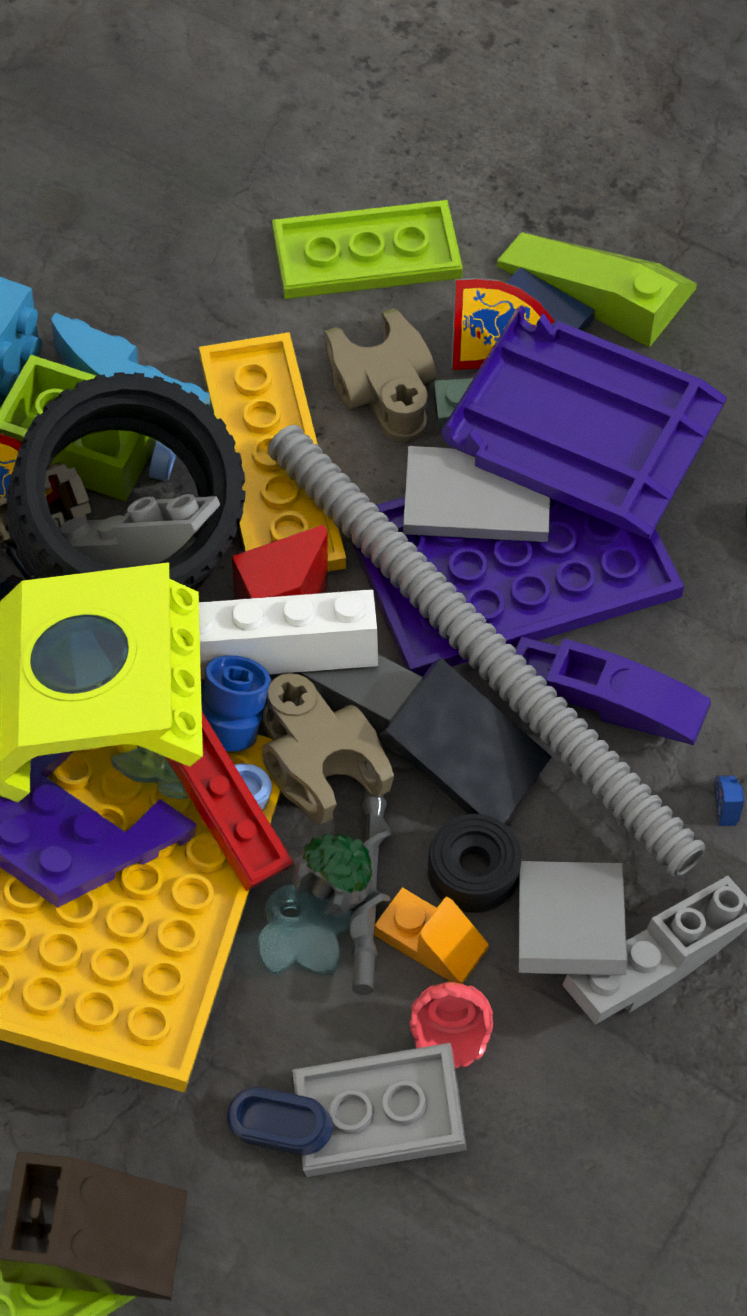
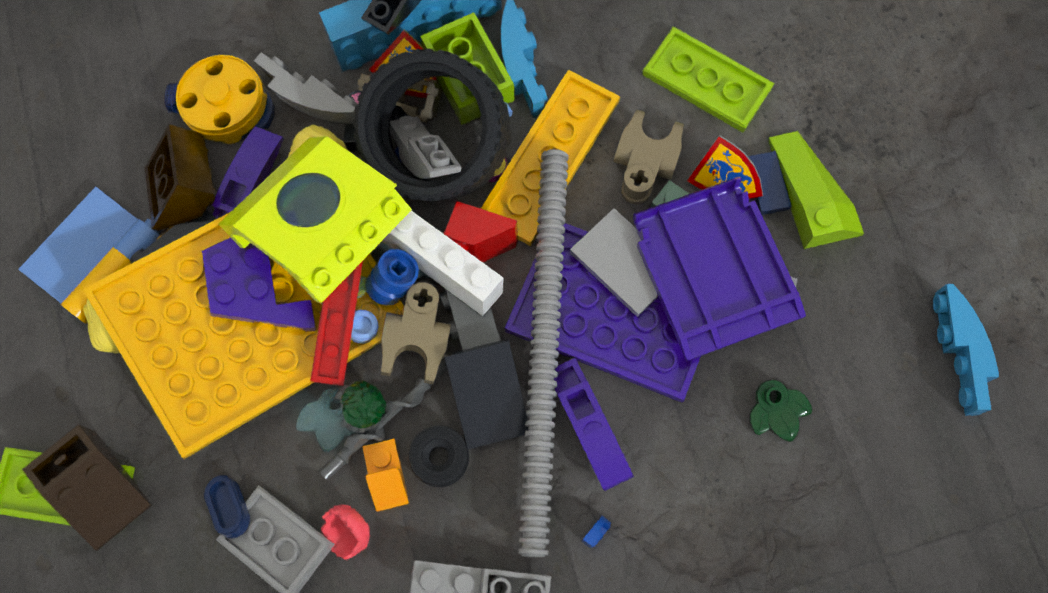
camera: 45 degrees right, 15 degrees up
(572, 918) = (448, 531): light grey tile -> none

